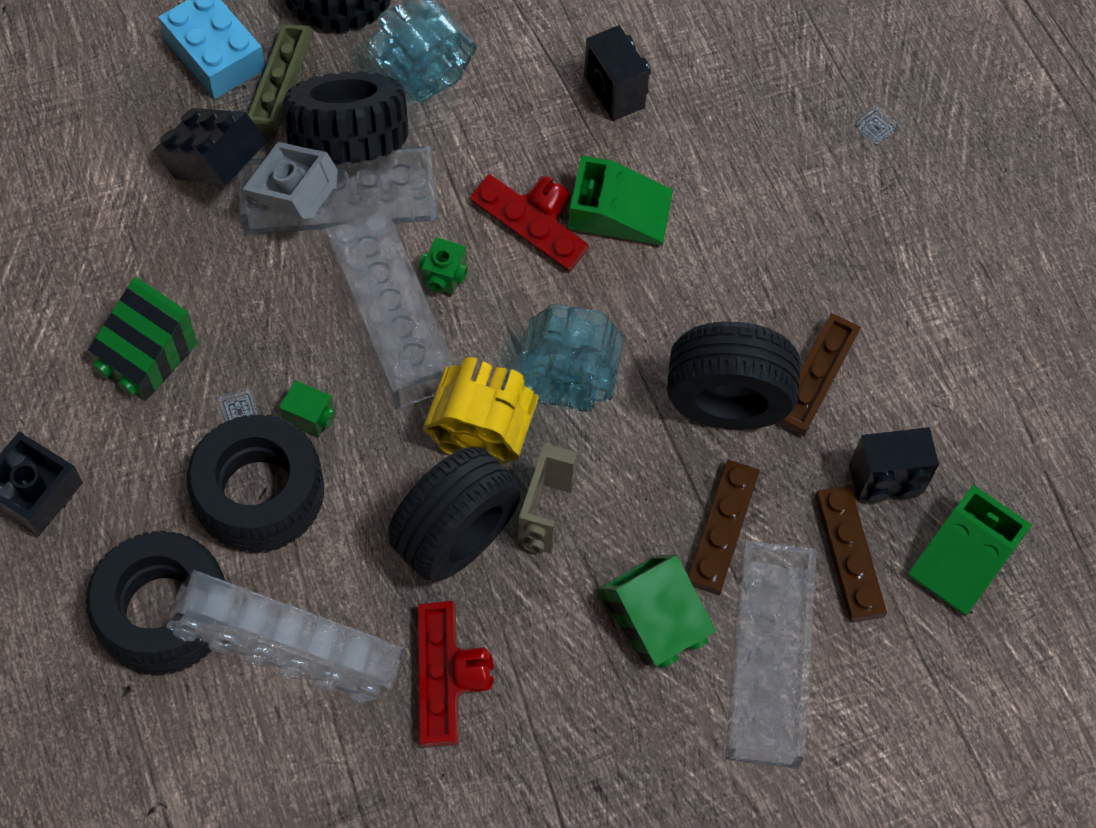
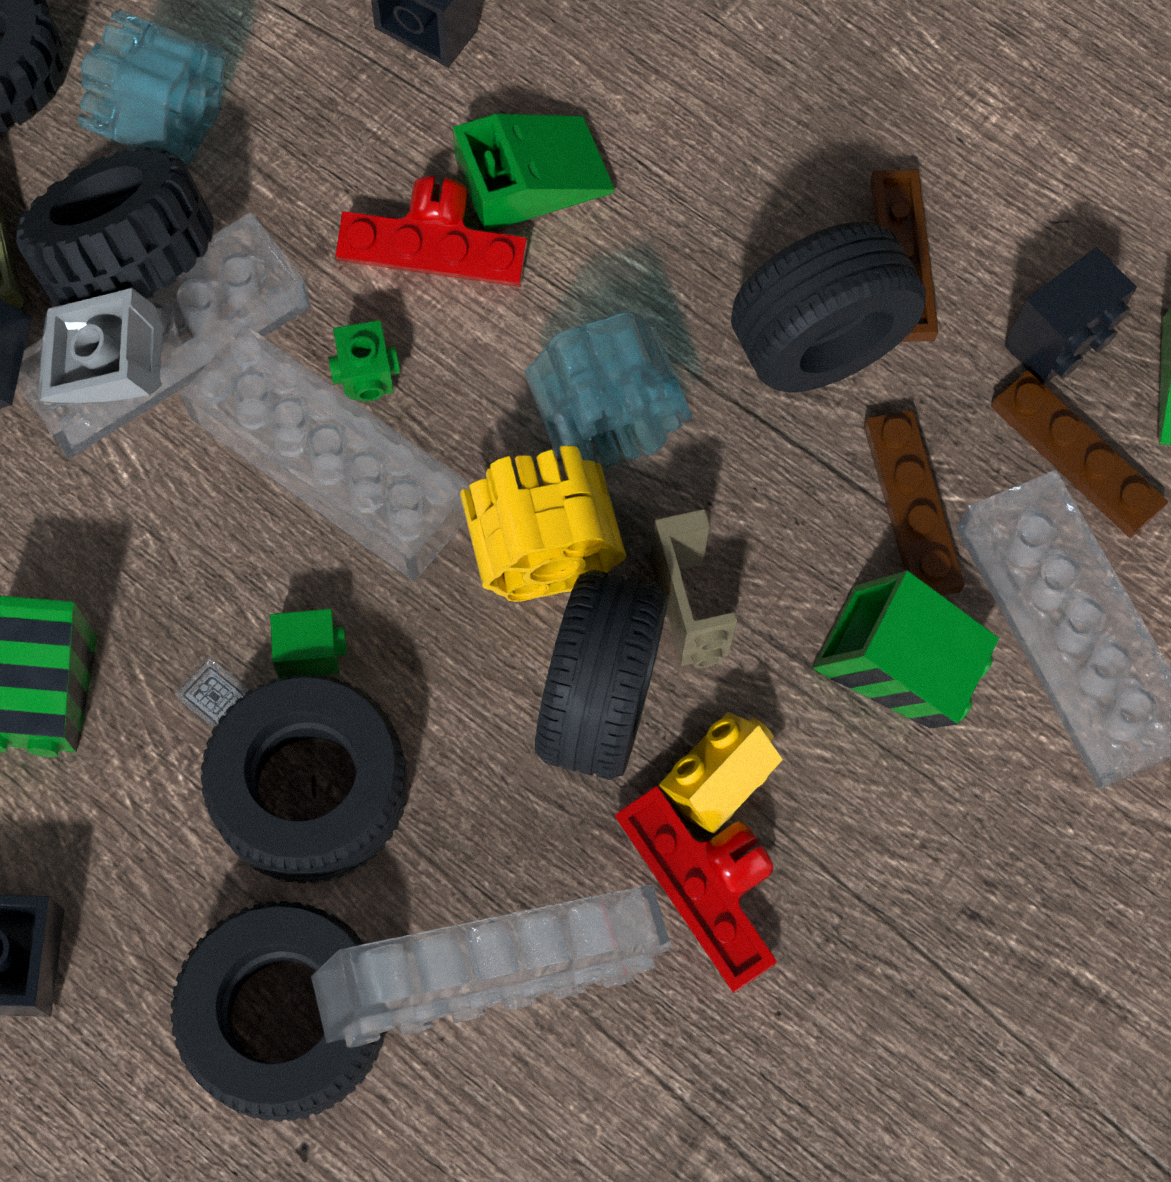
camera: 30 degrees left, 5 degrees up
(497, 614) = (721, 771): none -> yellow brick

